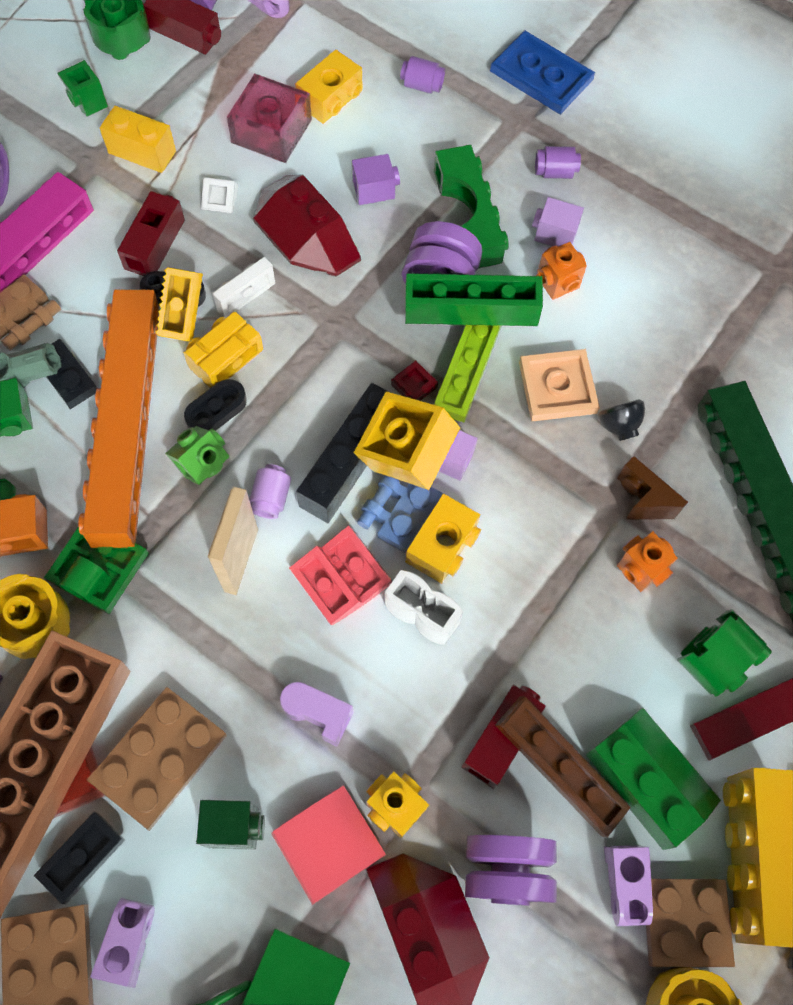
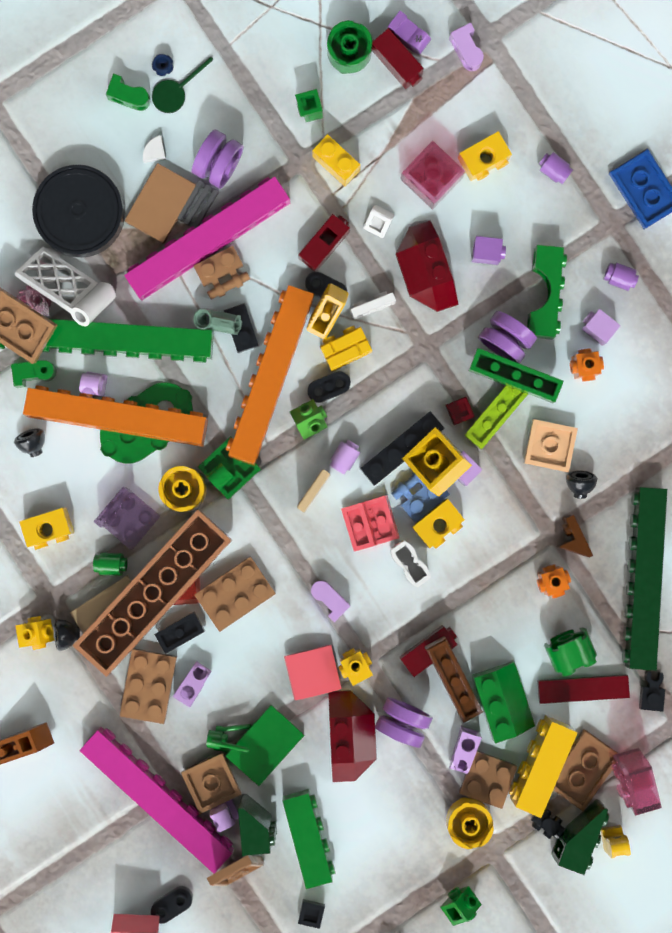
camera: 20 degrees right, 20 degrees up
(229, 824) = (264, 647): dark green brick -> none

